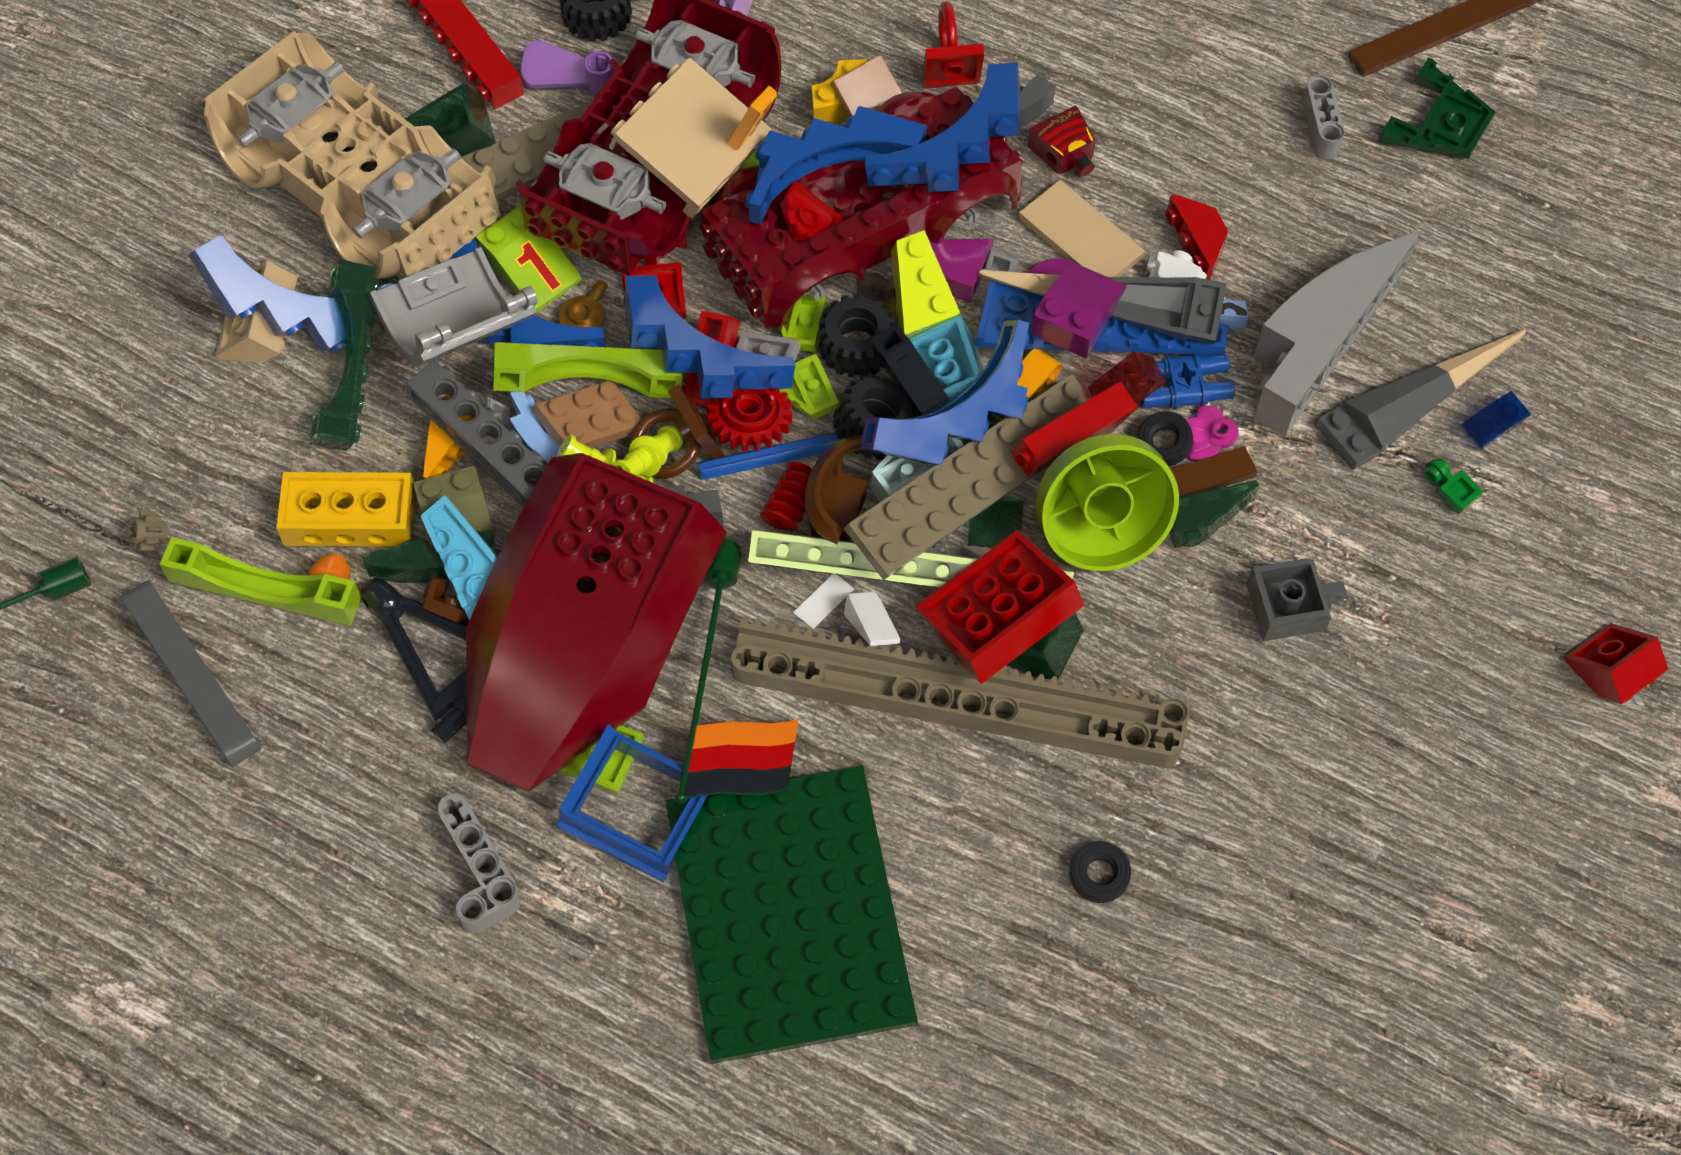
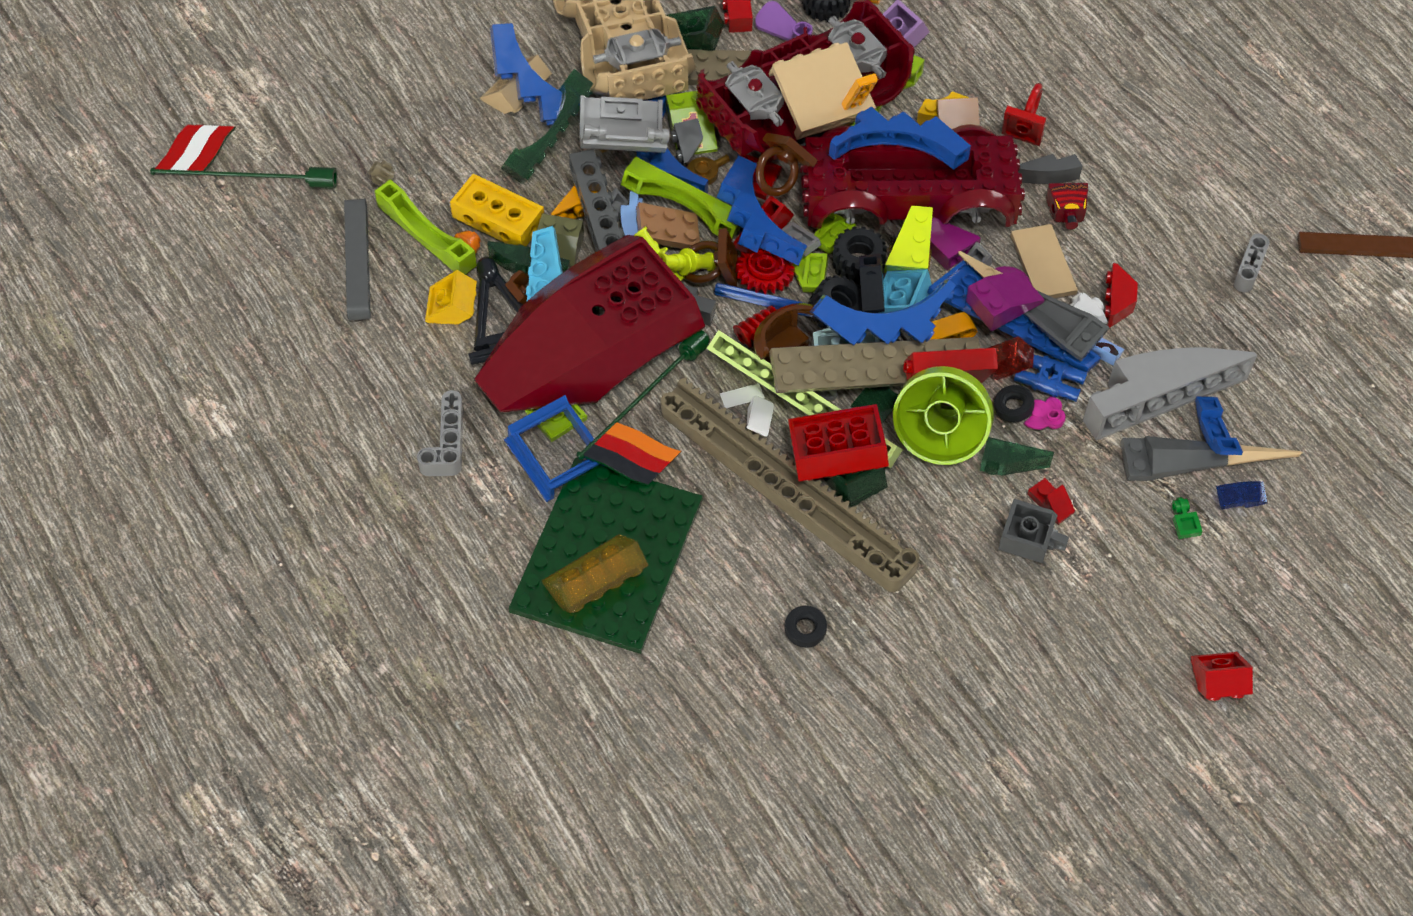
camera: 30 degrees right, 5 degrees down
(359, 665) = (451, 299): none -> yellow slope
(546, 281) = (688, 140): none -> dark grey slope
(697, 241) = (790, 153): none -> reddish brown tile
(799, 950) = (596, 573): none -> clear yellow slope
(806, 213) = (867, 166): red plate -> none
(965, 142) = (991, 166): blue arch -> none
(1214, 472) = (1028, 436): reddish brown tile -> none
(1284, 542) = (1049, 497): none -> red slope
(1395, 337) = (1213, 428): none -> blue slope
(1452, 124) = (1337, 307): dark green wing -> none

